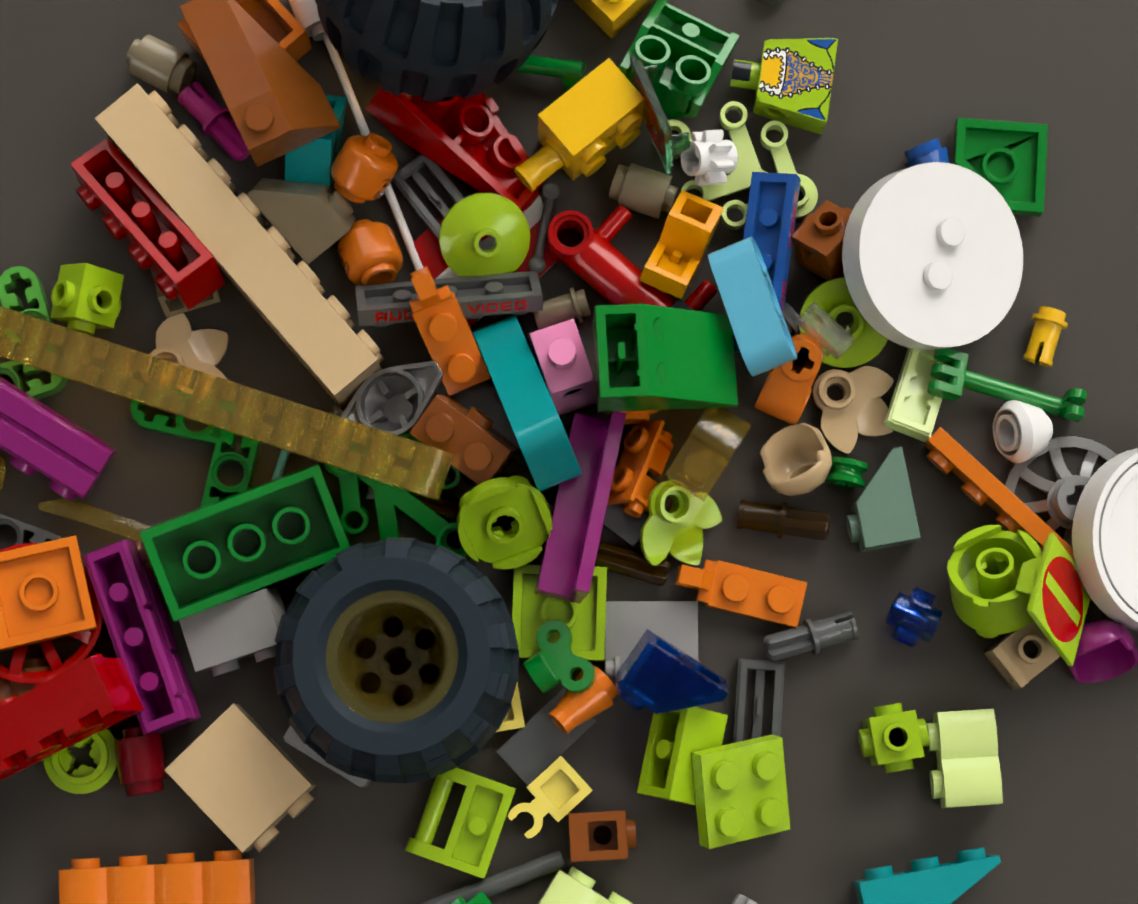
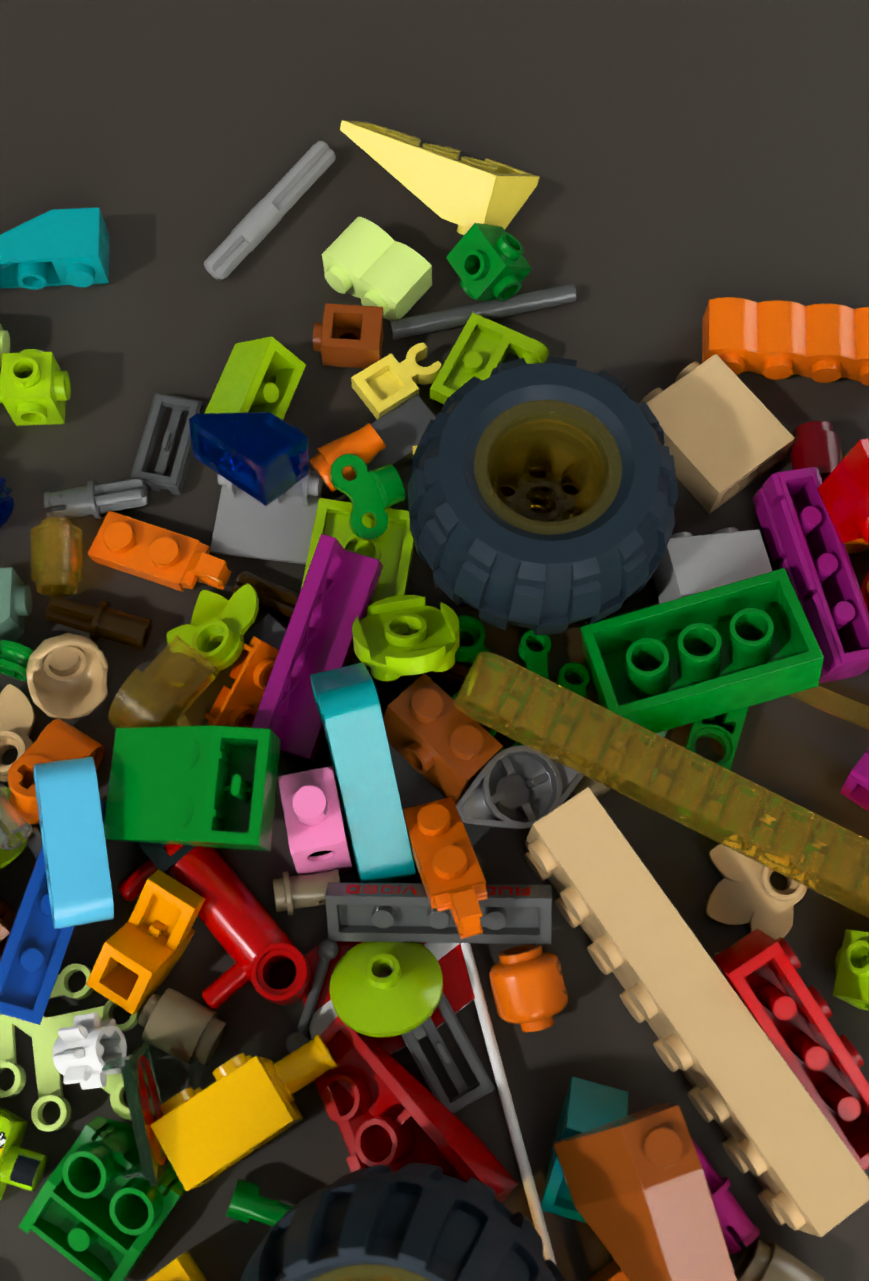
camera: 175 degrees left, 10 degrees down
(304, 214) = (609, 1043): dark tan slope -> none
(364, 167) = (526, 1094): orange head -> none
(740, 791) = (199, 353): lime plate -> none
(833, 574) = (56, 556): none -> clear yellow brick

